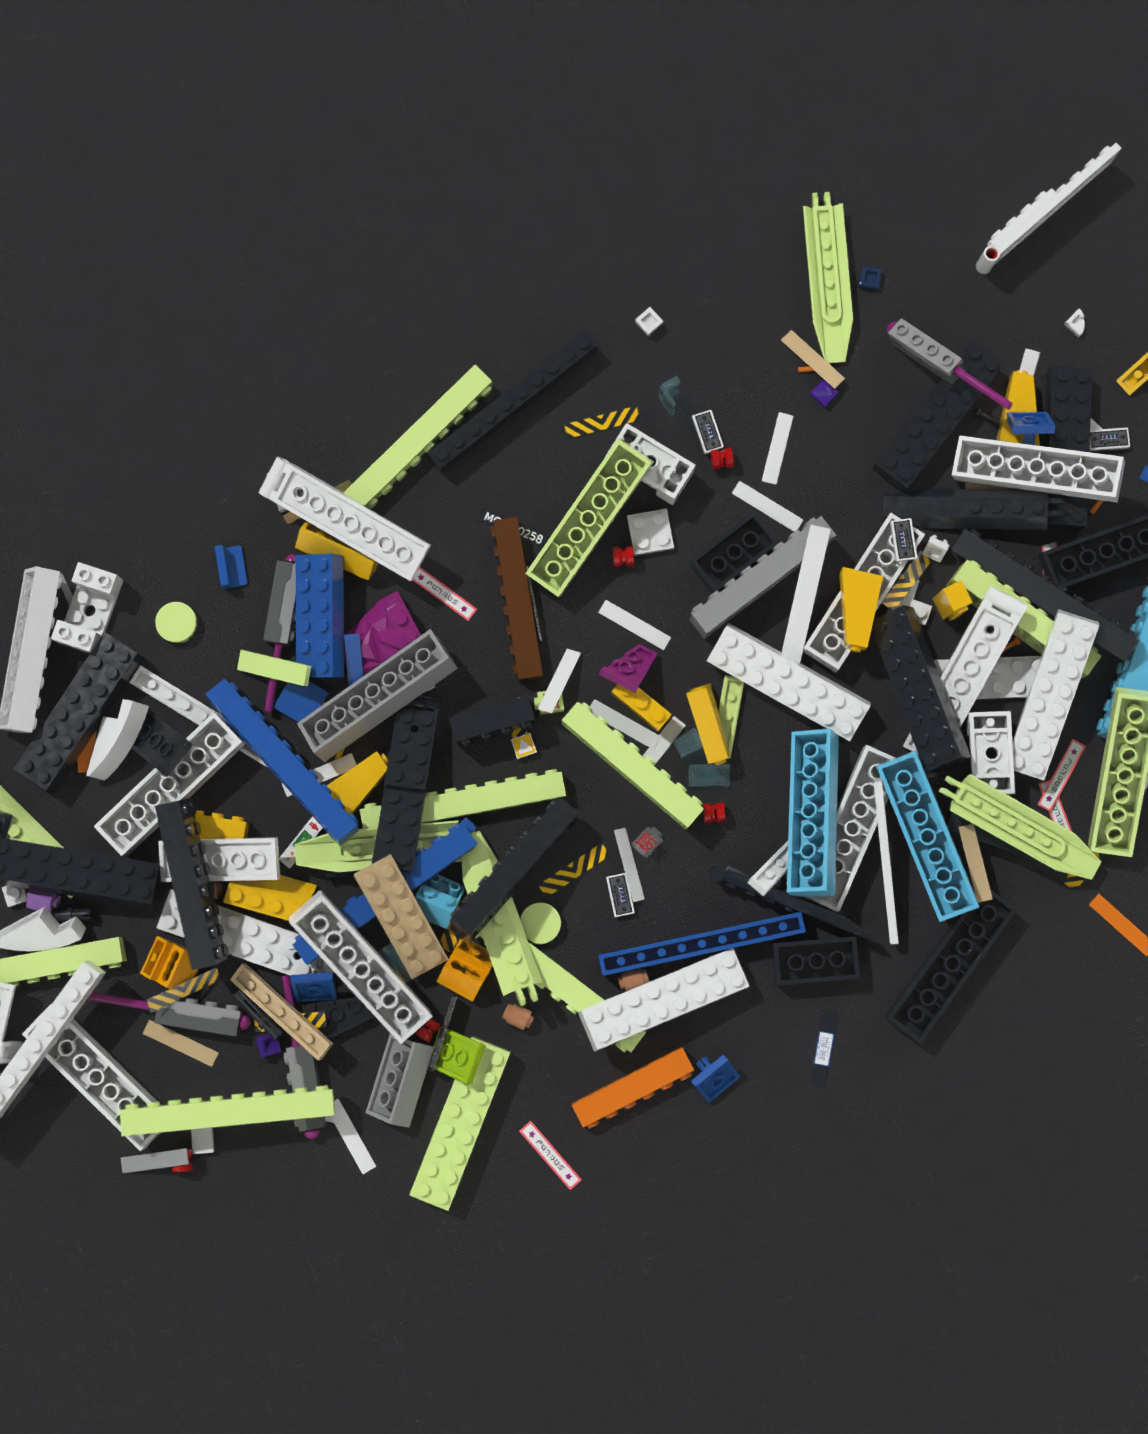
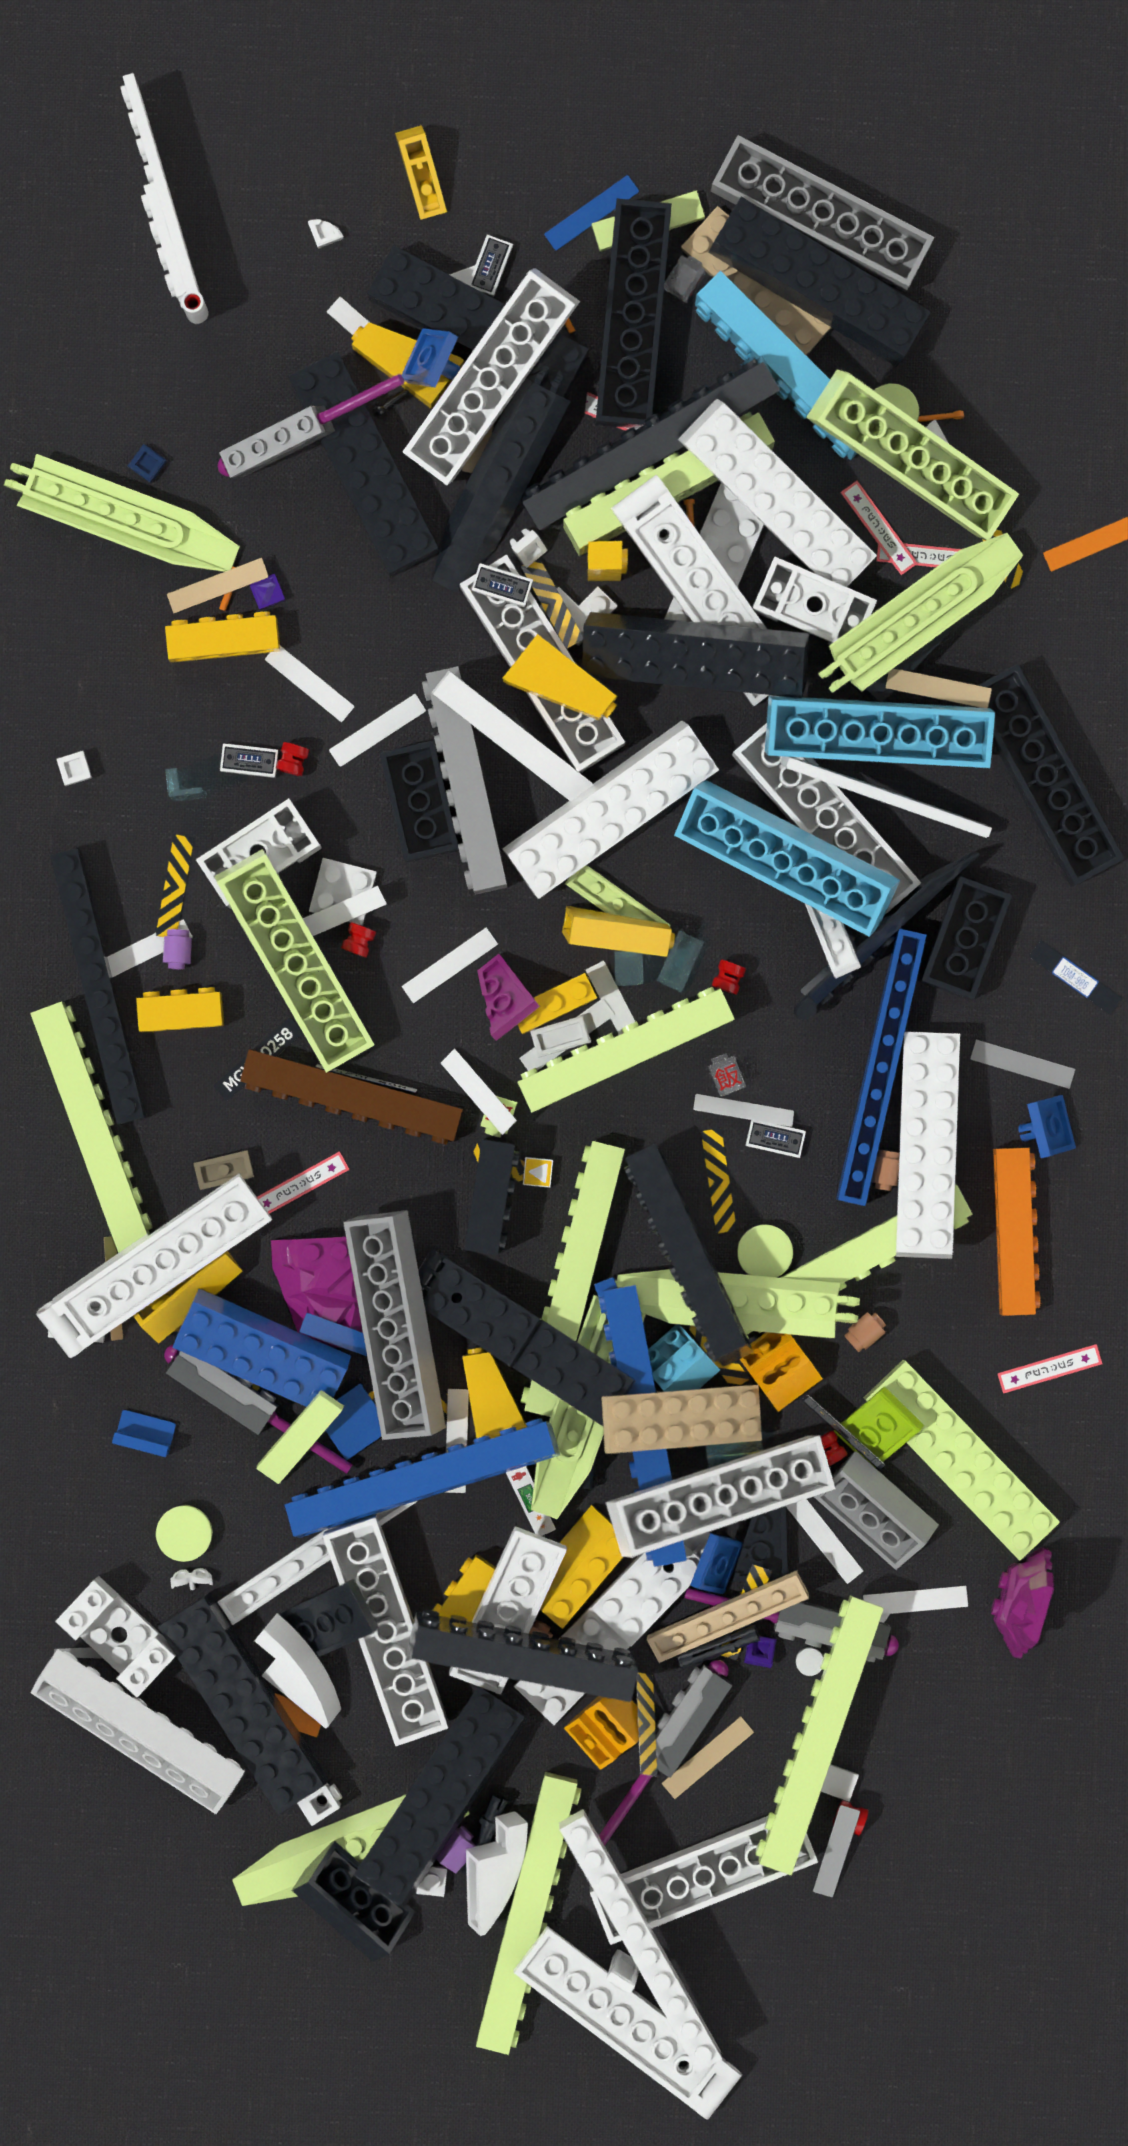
camera: 65 degrees left, 5 degrees up
(28, 793) = (316, 1812): none -> white brick
(152, 645) = (198, 1576): none -> white piece
(276, 1081) = (809, 1661): none -> white tile
(364, 1054) = (825, 1539): none -> white sticker
(382, 1210) = (1024, 1601): none -> magenta wedge
(425, 530) = (222, 1169): none -> dark tan plate
(522, 461) = (180, 1010): none -> yellow brick
(552, 422) = (139, 952): none -> white sticker
(561, 441) = (177, 948): none -> medium lavender brick
(621, 719) = (560, 1036): none -> white tile
(637, 537) = (344, 911): none -> white sticker
(748, 1040) = (1022, 1064): none -> light grey sticker
(779, 377) = (222, 638): none -> yellow brick

